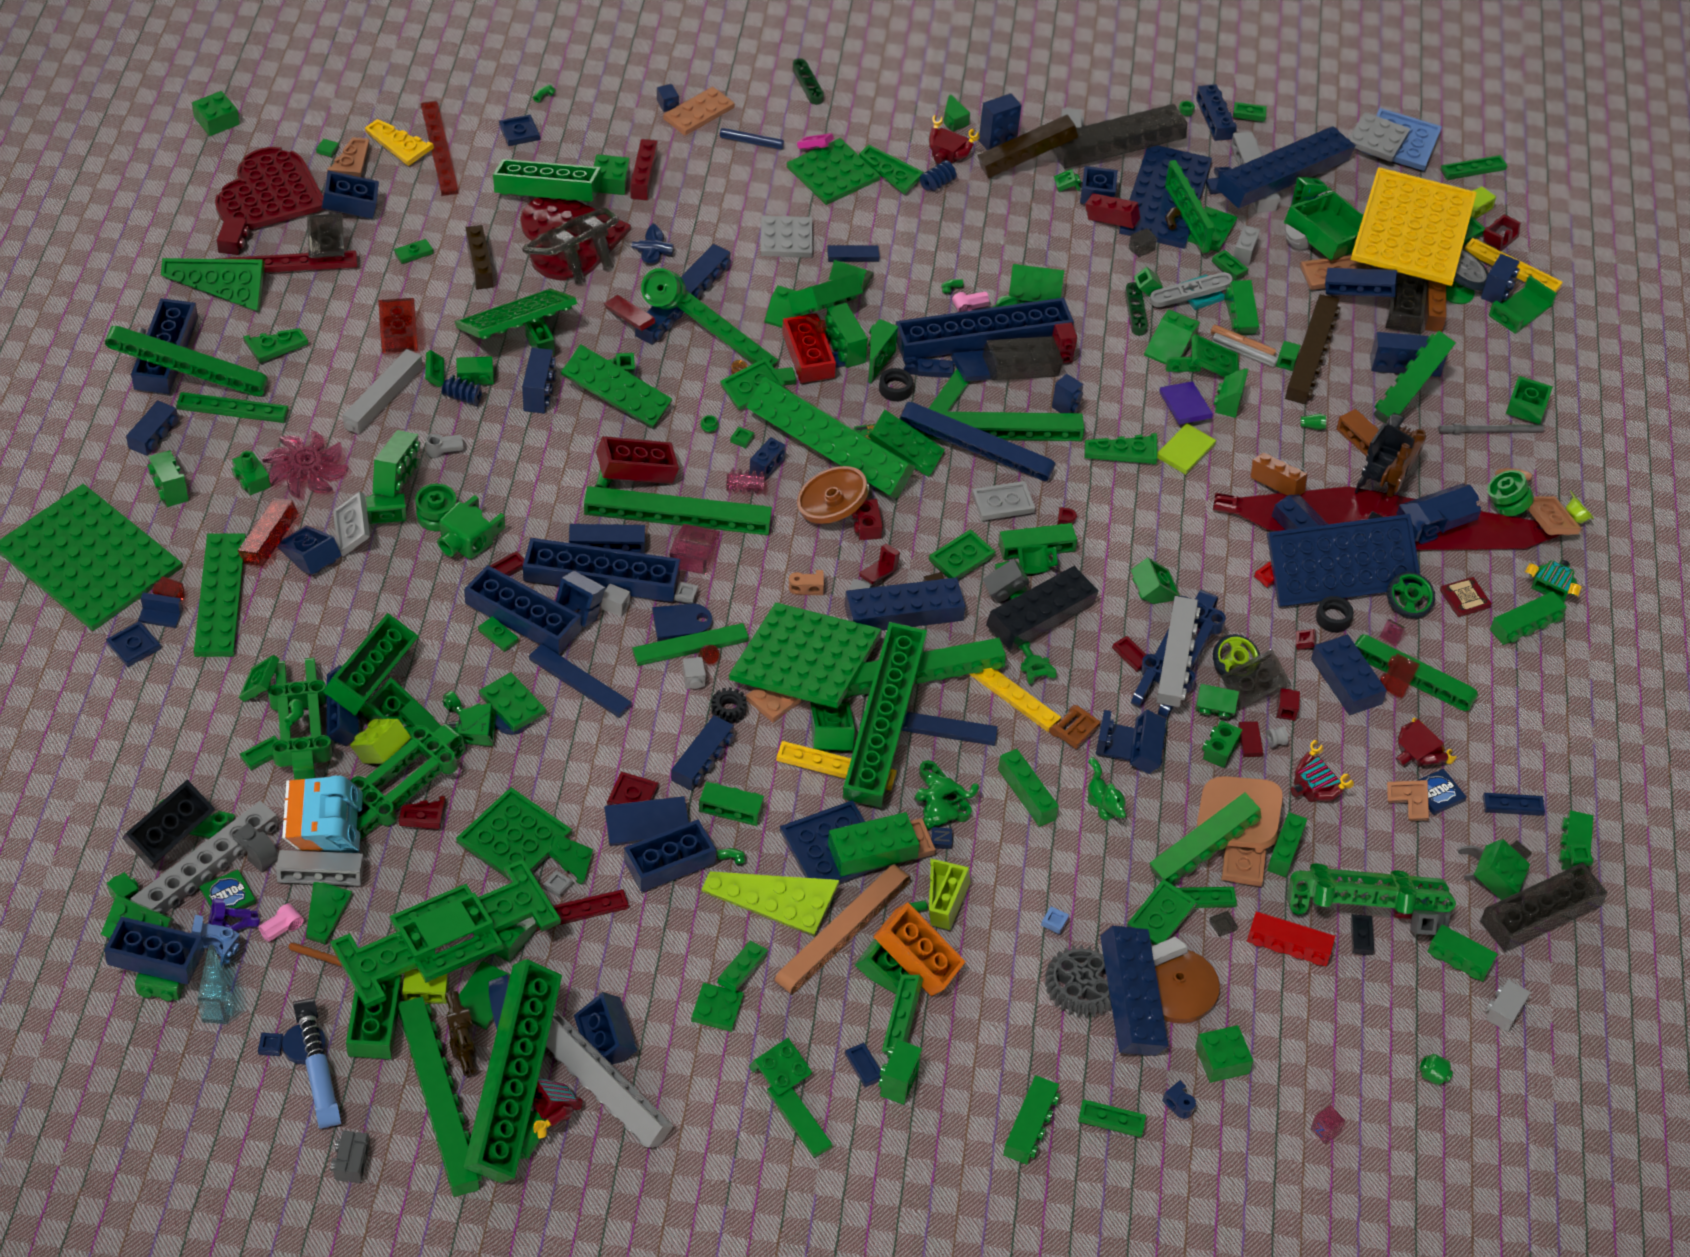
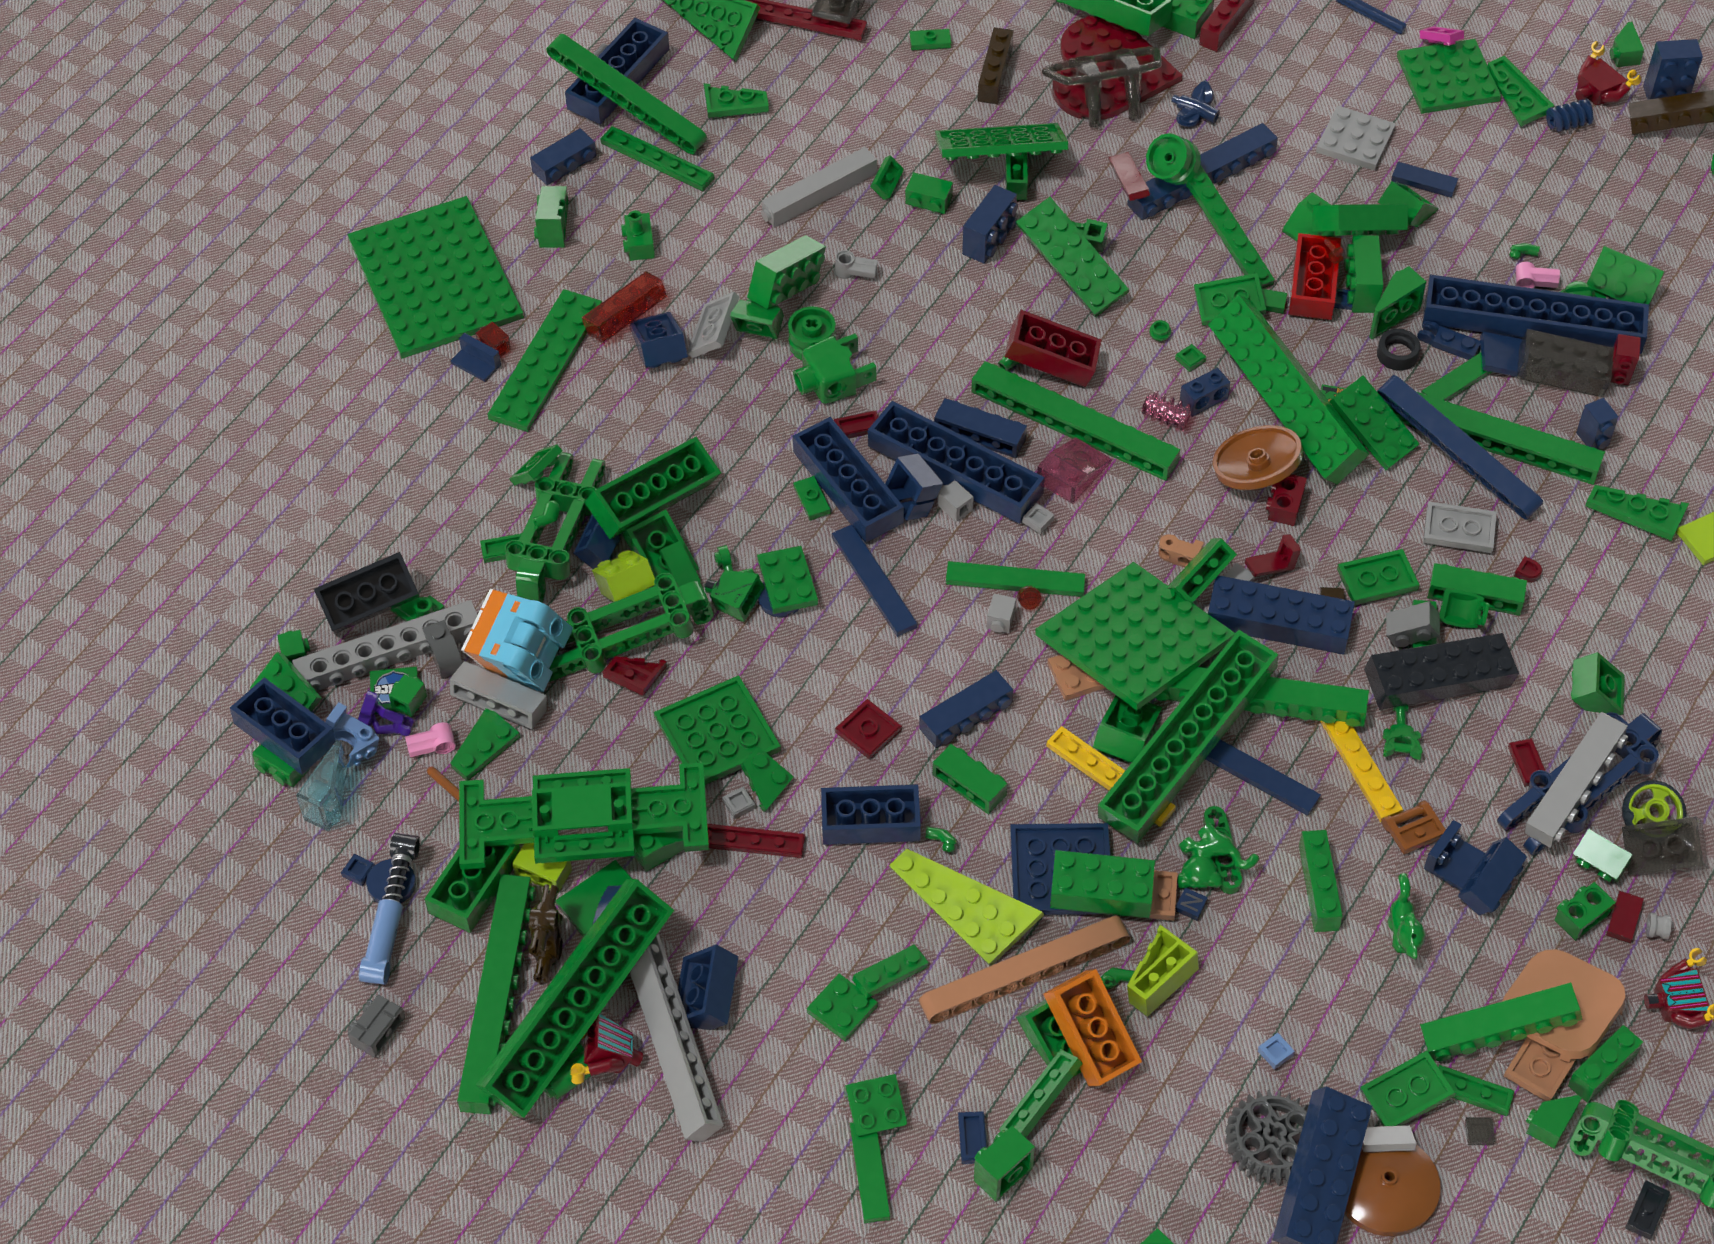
camera: 30 degrees right, 5 degrees up
(133, 644) = (433, 385): dark blue tile -> none
(244, 892) = (407, 695): none -> green brick
(305, 463) = (700, 243): clear pink piece -> none
(398, 325) = (869, 117): clear red brick -> none
(462, 391) = (904, 211): dark blue piece -> none
(643, 819) = (864, 763): dark blue tile -> none
(680, 620) = (1017, 548): dark blue tile -> none
(729, 697) = (1022, 676): black tyre -> none
(738, 363) = (1225, 270): clear orange bush -> none
(834, 589) = (1202, 569): none -> green brick
(1270, 896) = (1551, 1119): none -> green slope
(1288, 704) = (1692, 890): dark red brick -> none
(1291, 938) = (1553, 1182): red brick -> none

